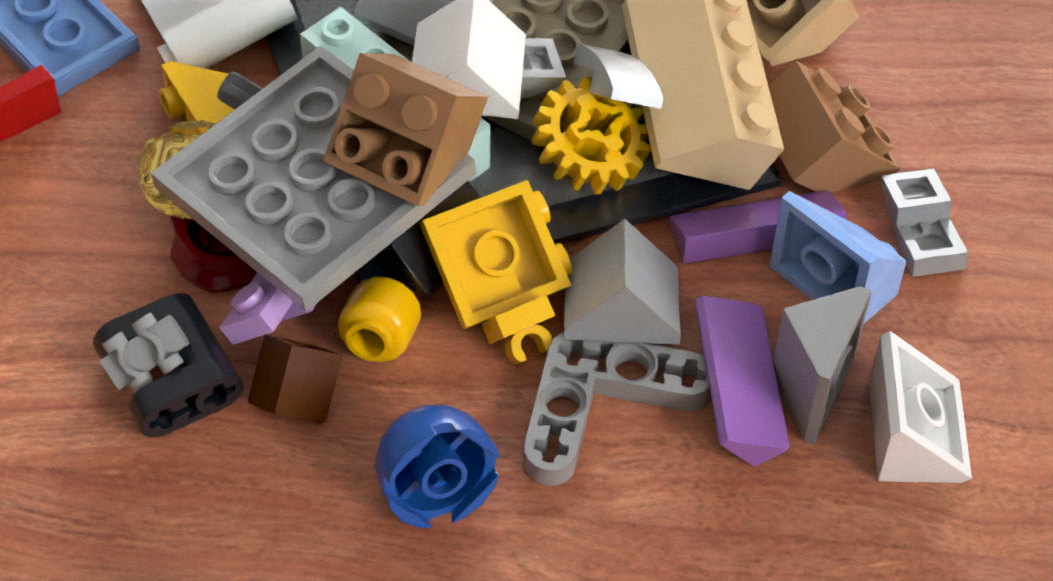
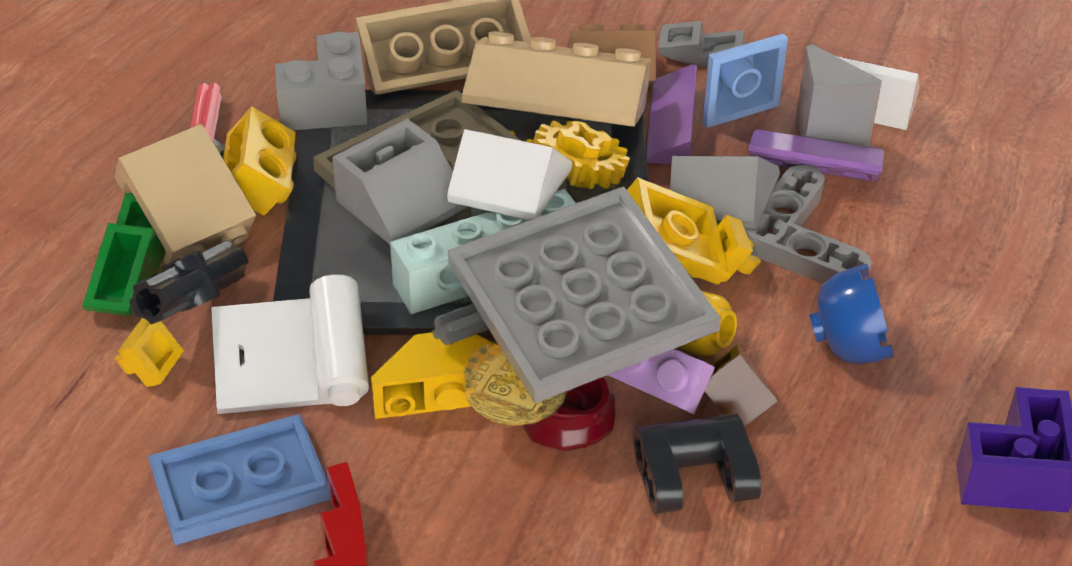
camera: 70 degrees left, 10 degrees down
(153, 346) = (696, 462): light grey piece -> none
(403, 126) = (590, 203): medium nougat slope -> none
(619, 76) = (555, 108): slope -> none

